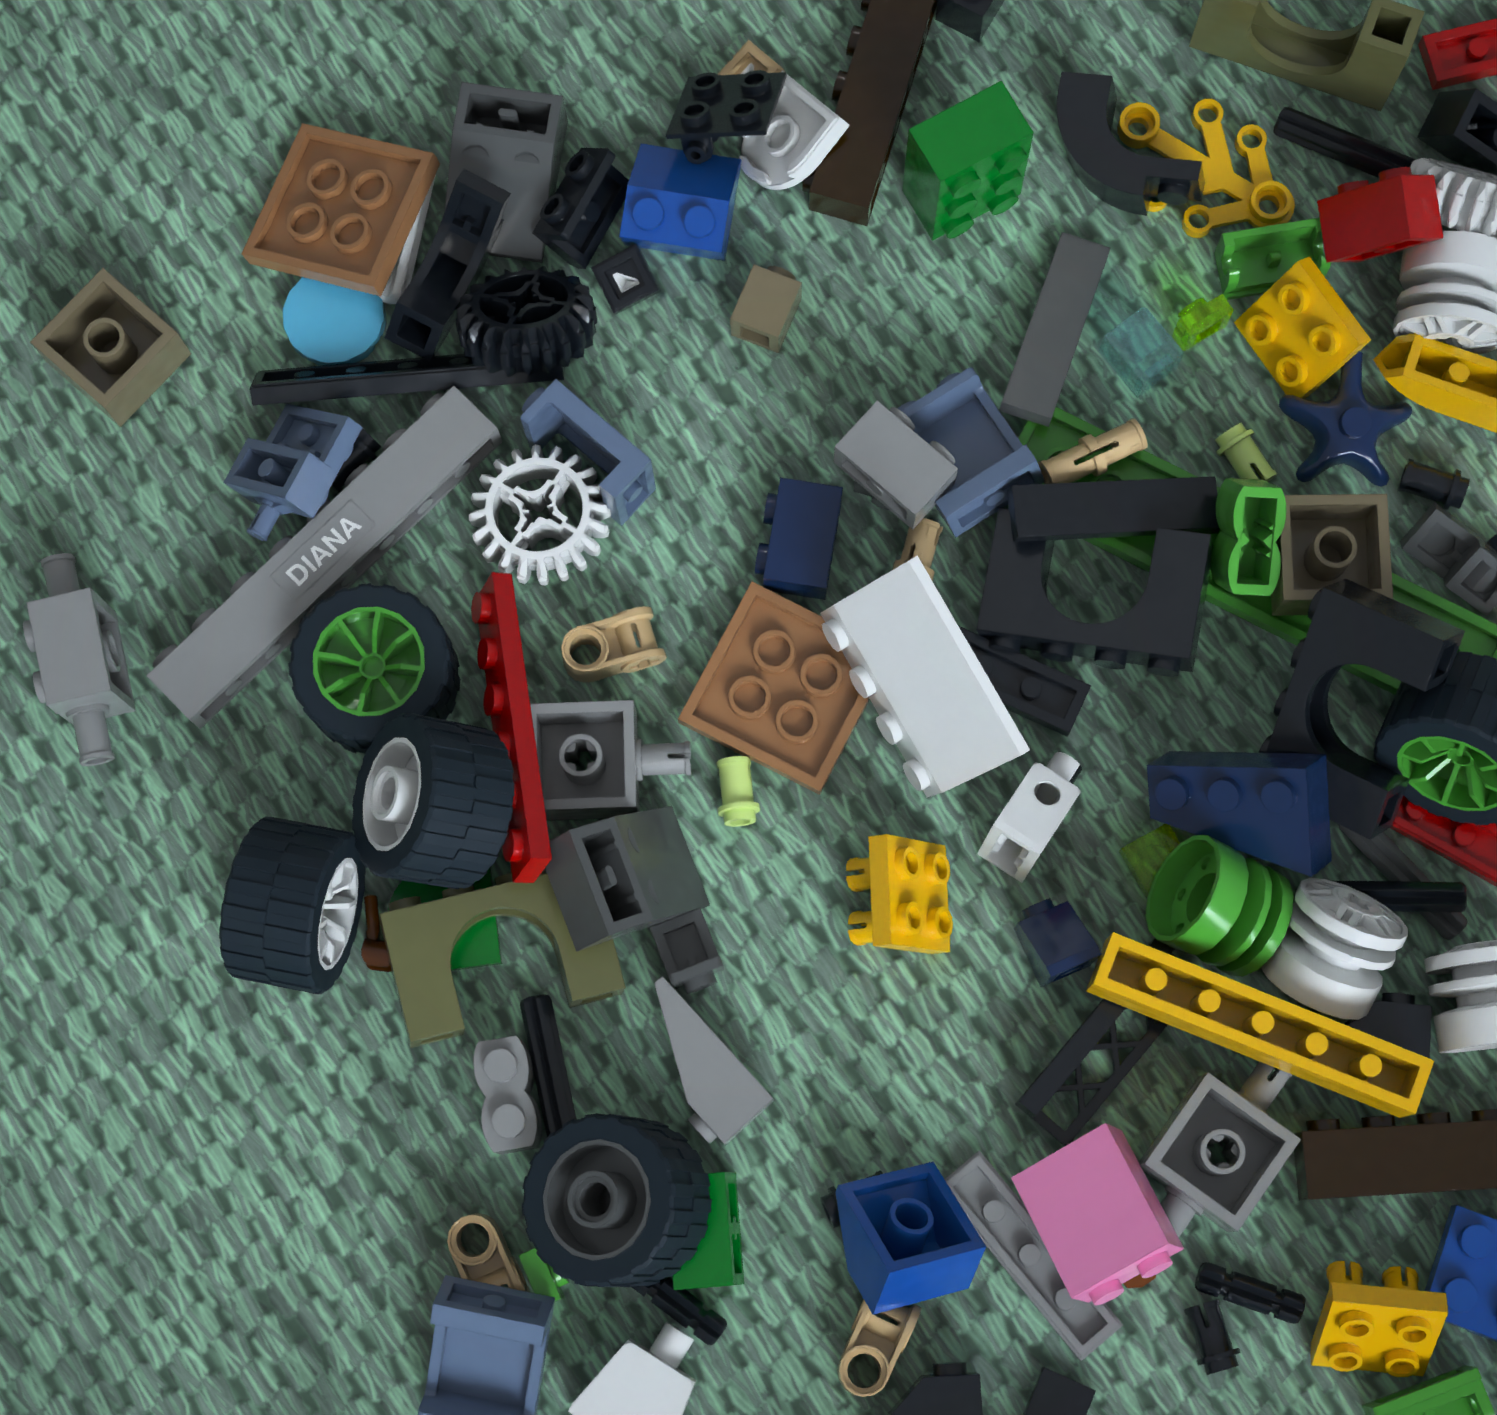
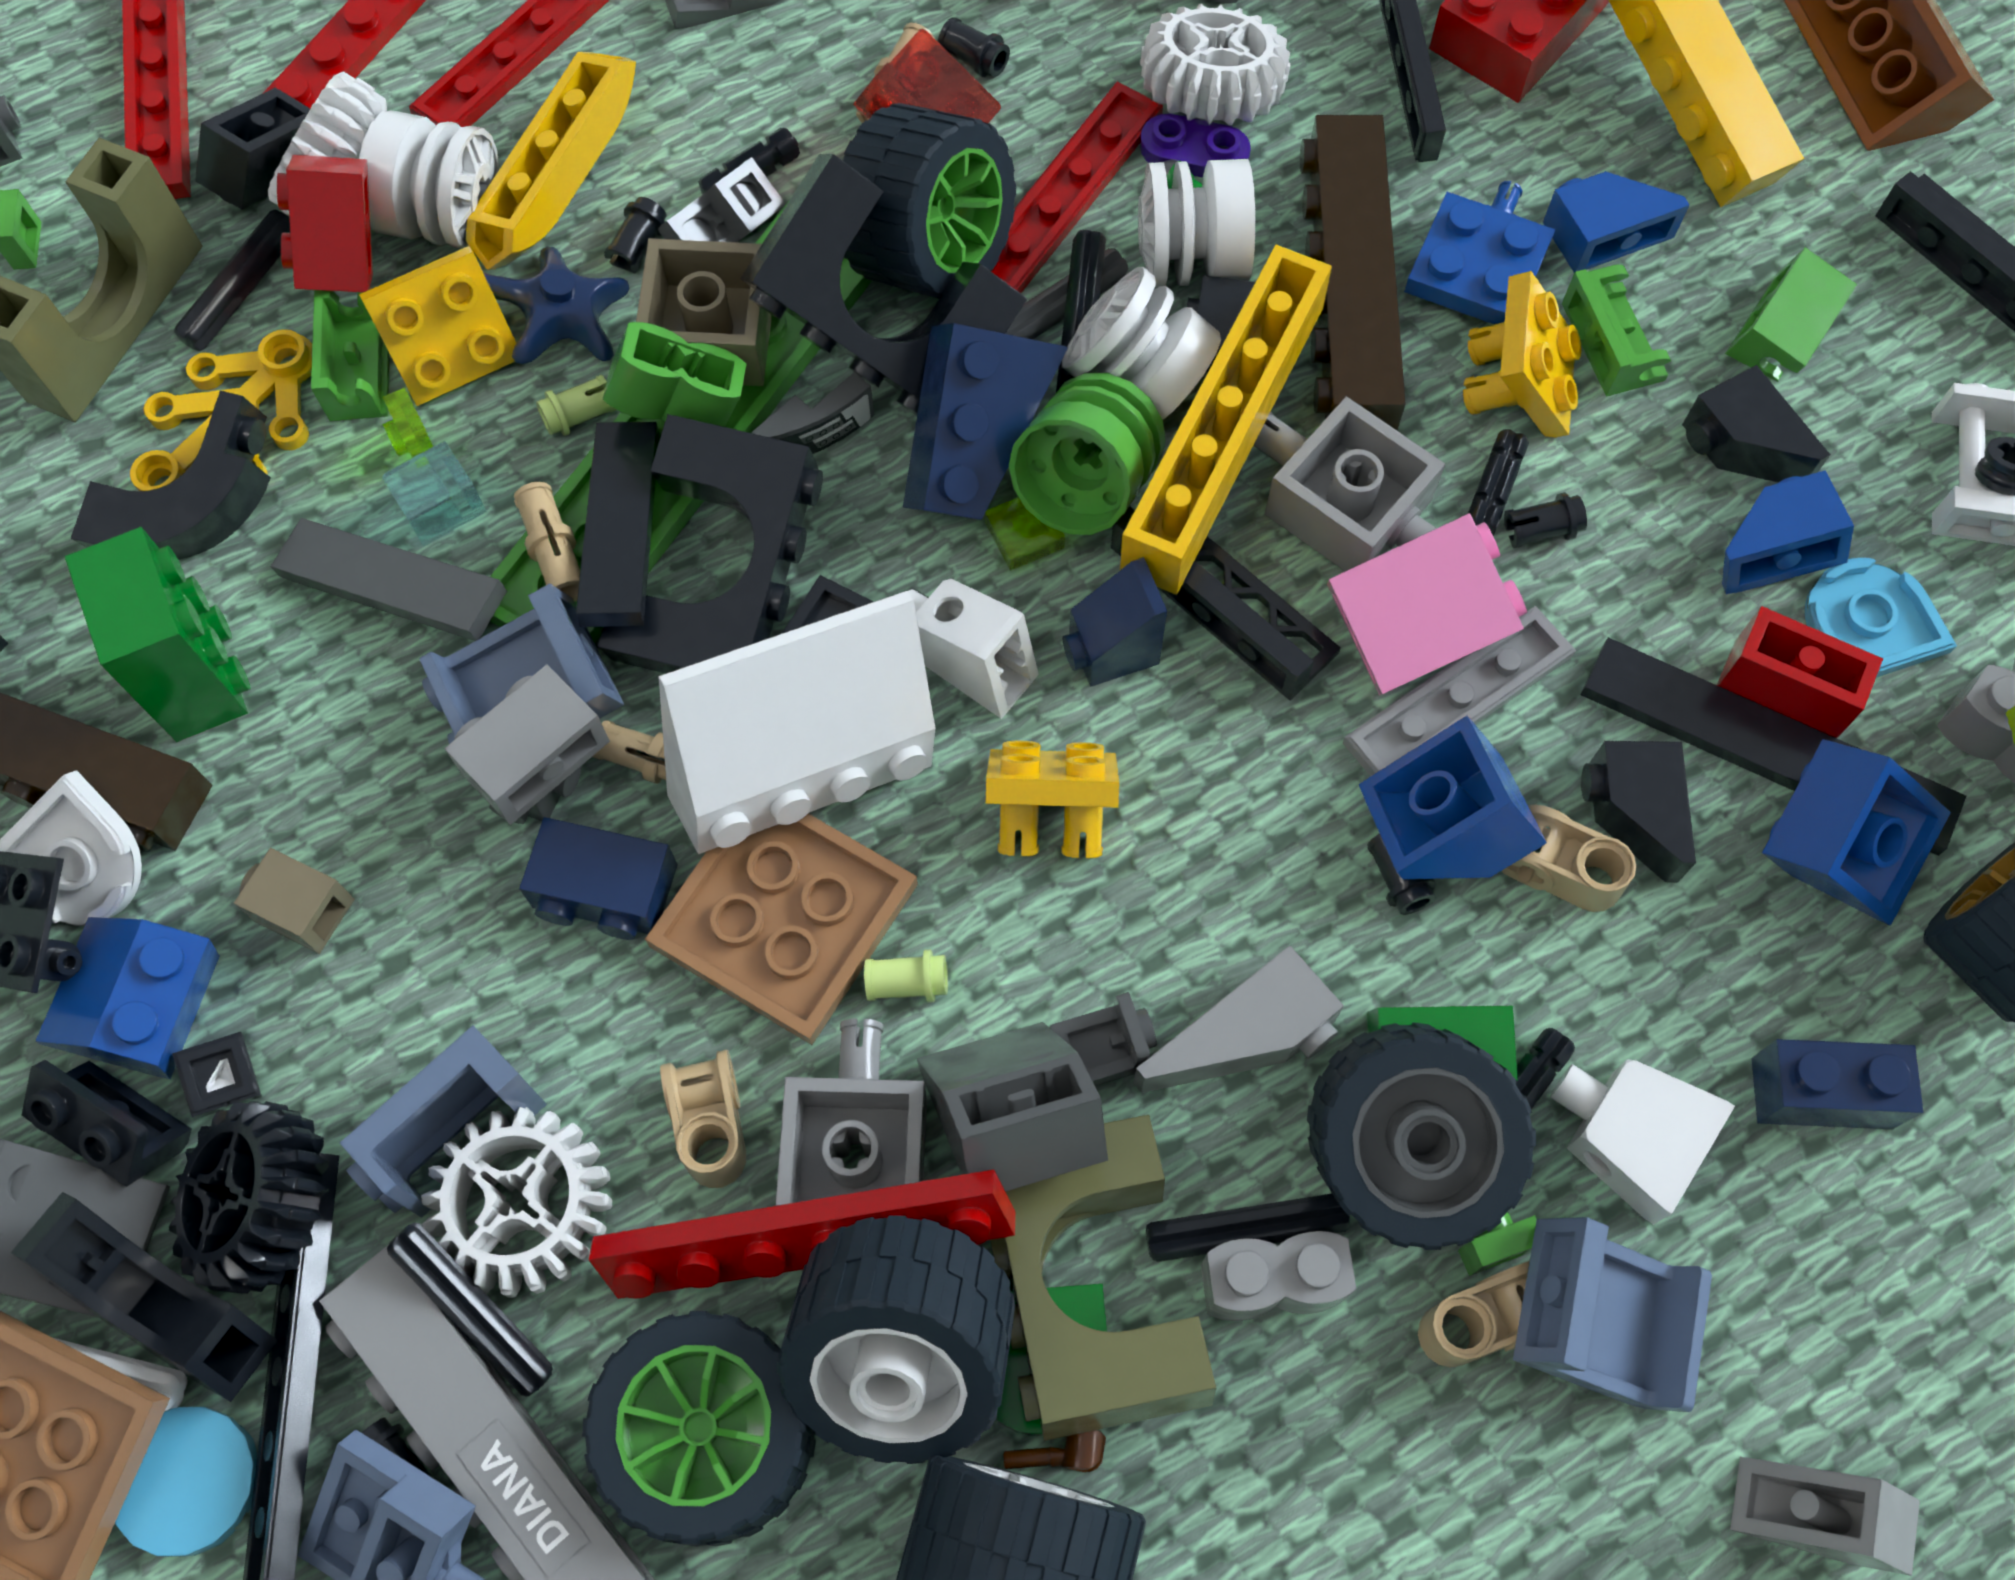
camera: 90 degrees left, 10 degrees down
(455, 493) = (470, 1309): none -> black axle
(1233, 650) = (827, 422): none -> dark grey slope

